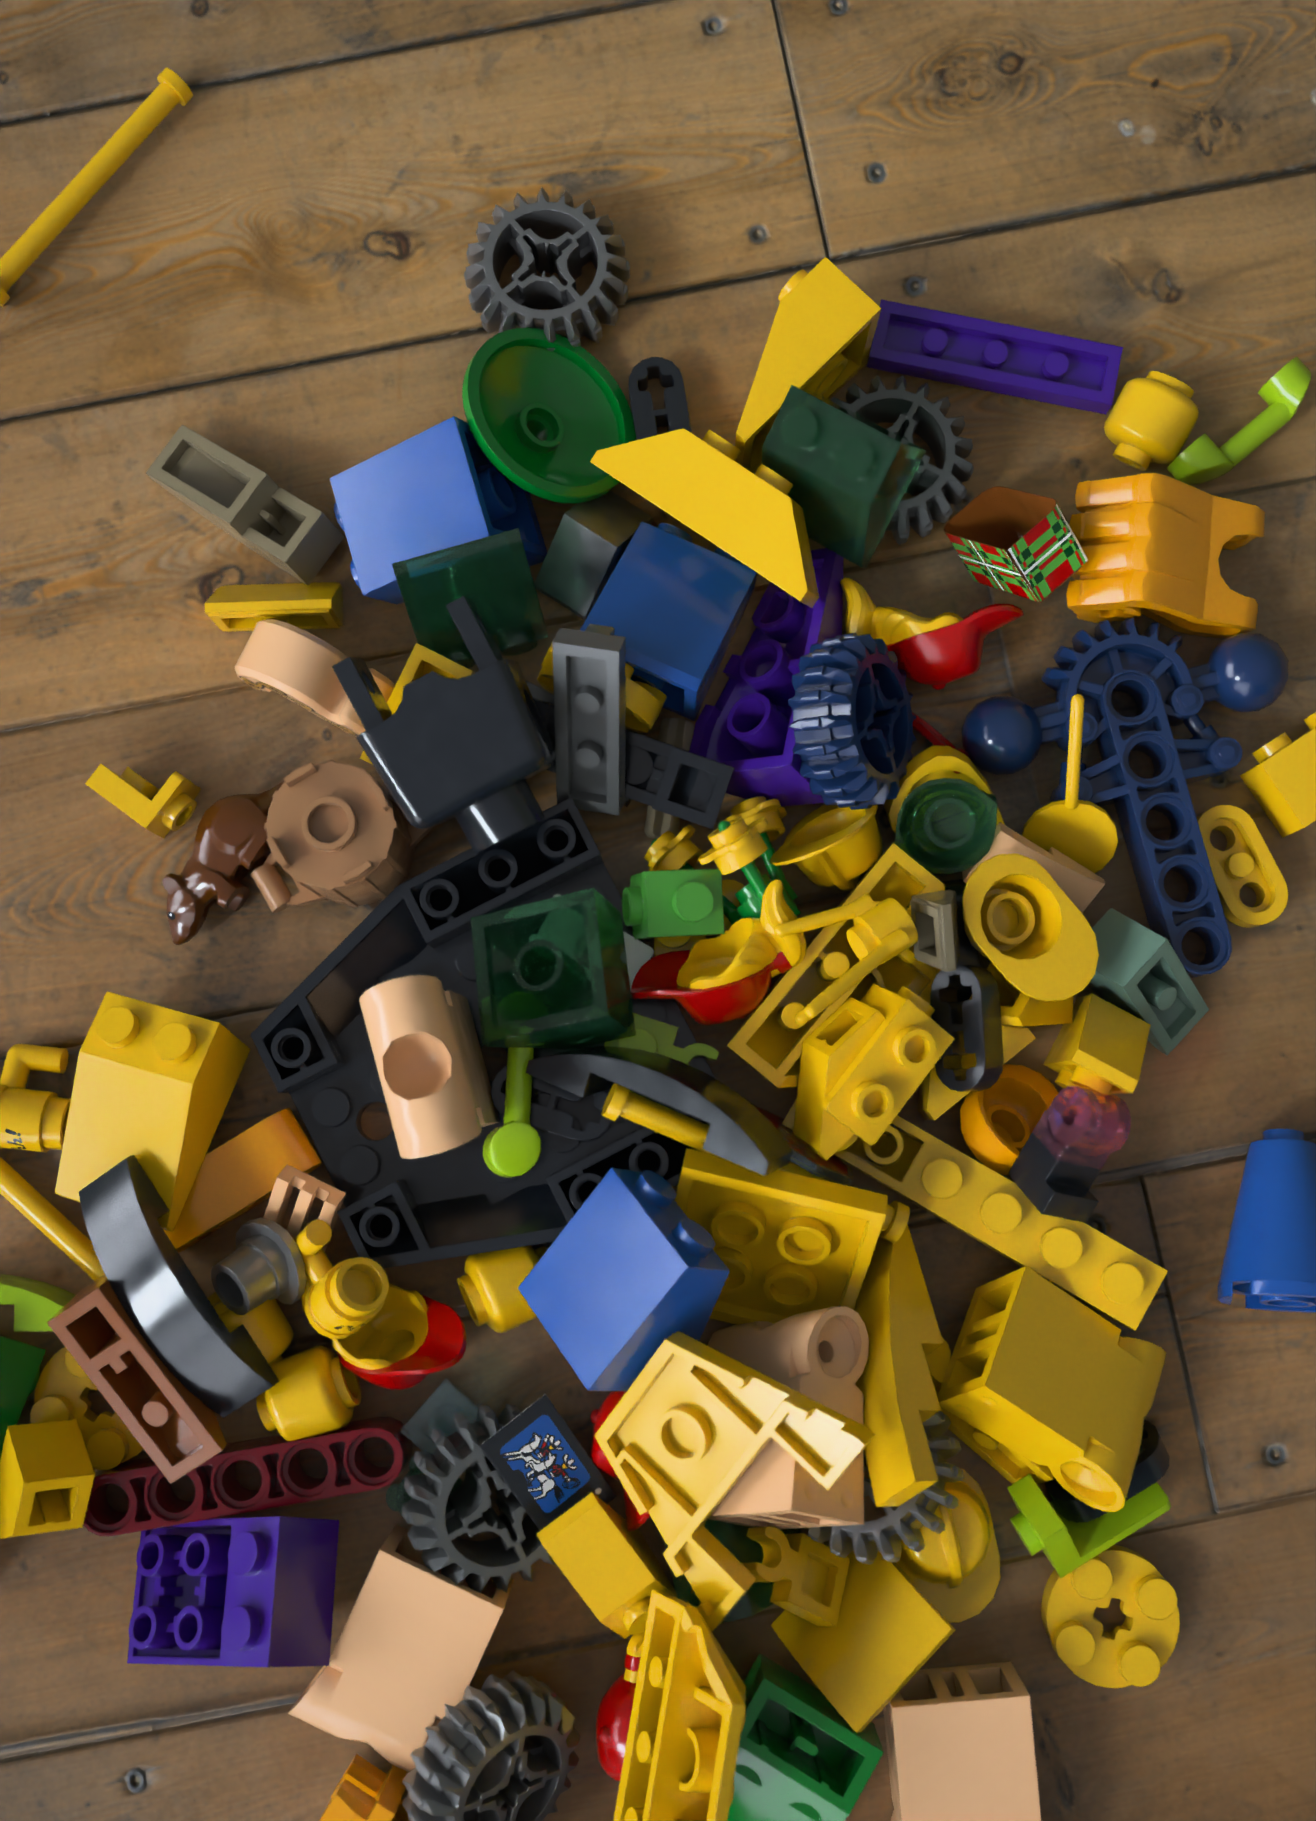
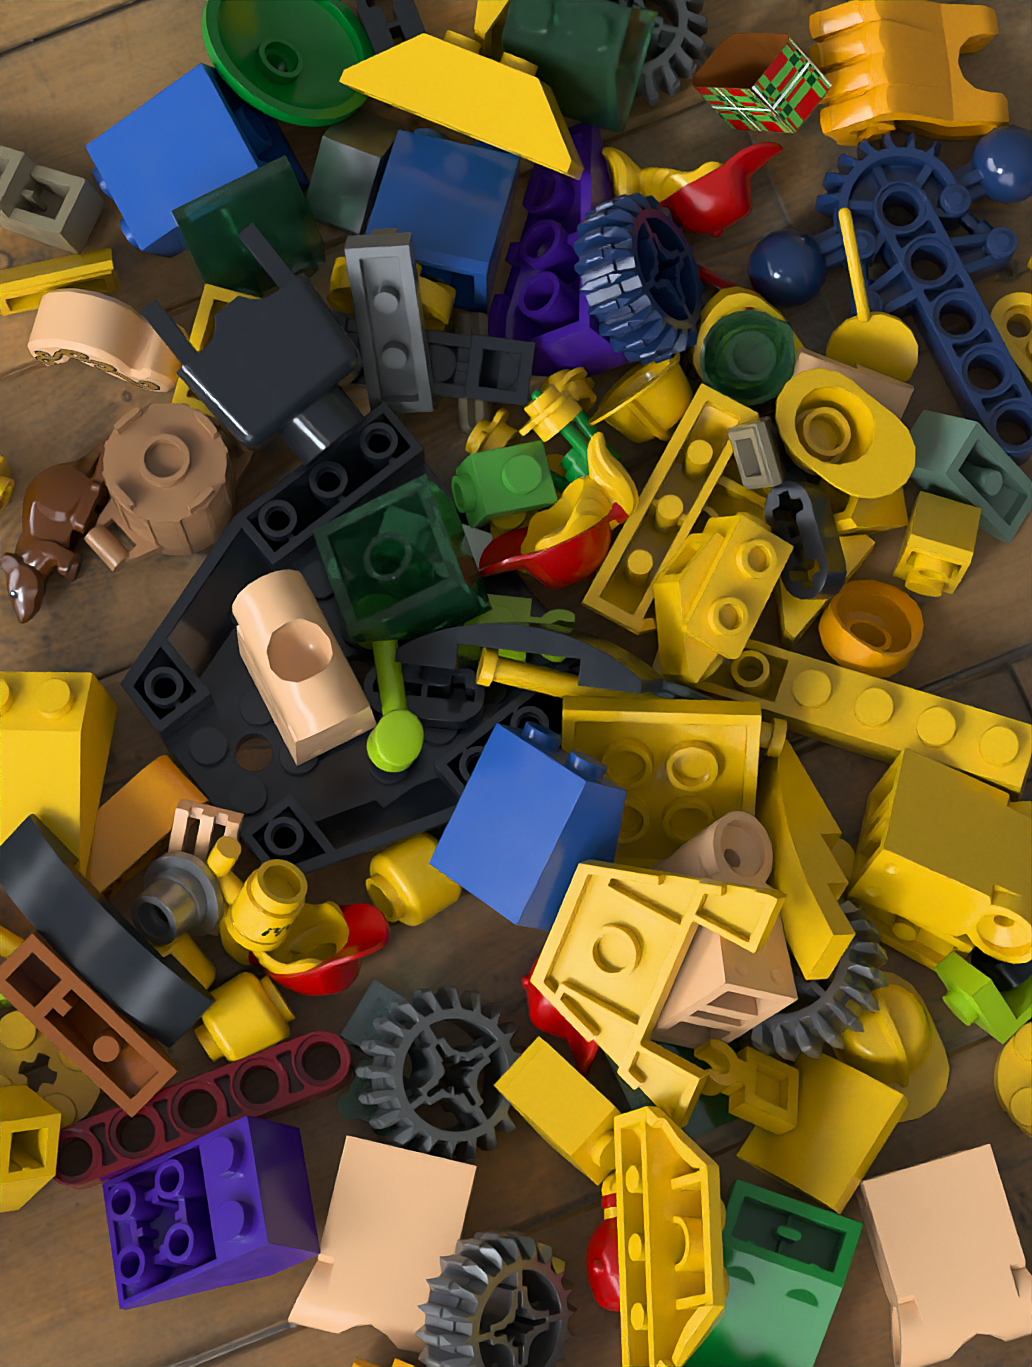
camera: 15 degrees left, 5 degrees down
(544, 1463) = (484, 1024): black sticker -> none
(875, 938) = (700, 470): yellow plant -> none
(1070, 1151) = (927, 634): leg -> none

